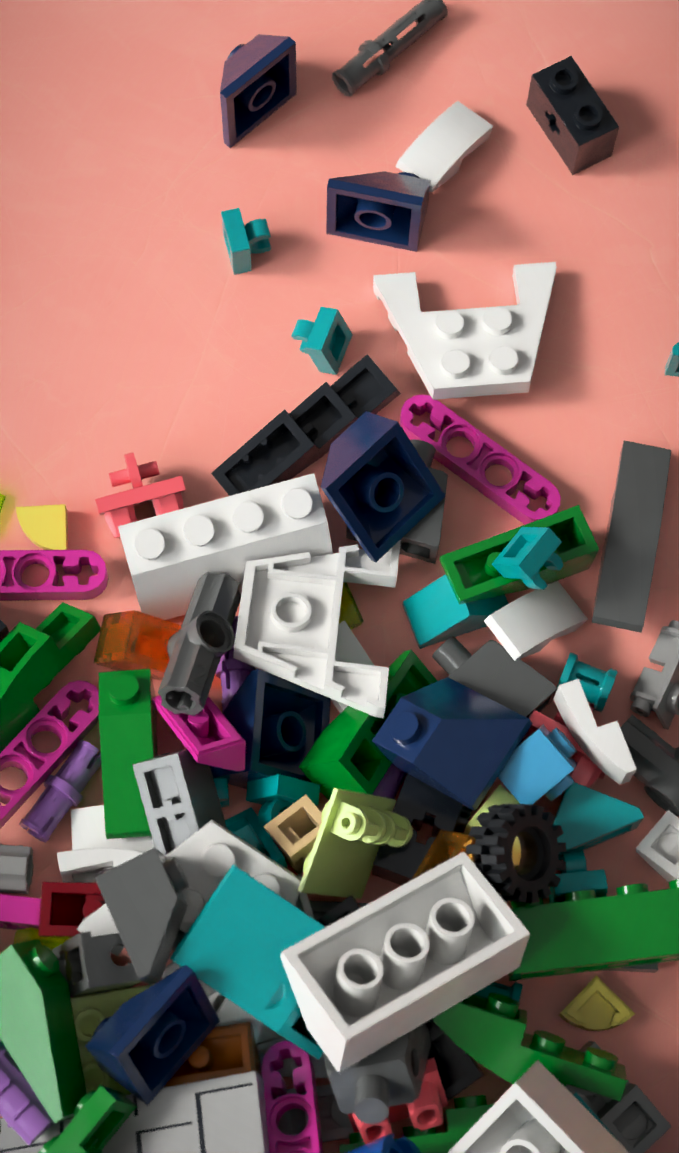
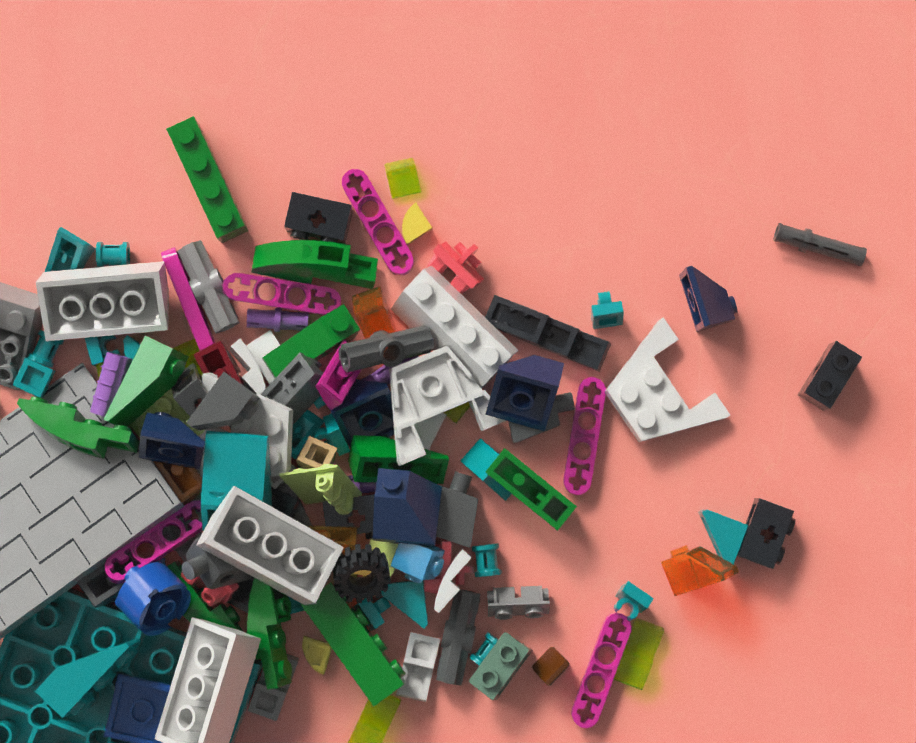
camera: 65 degrees right, 15 degrees up
(243, 239) = (642, 232): teal tile -> none
(256, 83) = (744, 181): dark blue slope -> none
(444, 145) = (769, 312): white slope -> none
(527, 554) = (527, 495): teal tile -> none
(535, 620) = (504, 516): white slope -> none
(632, 537) = (584, 542): dark grey slope -> none

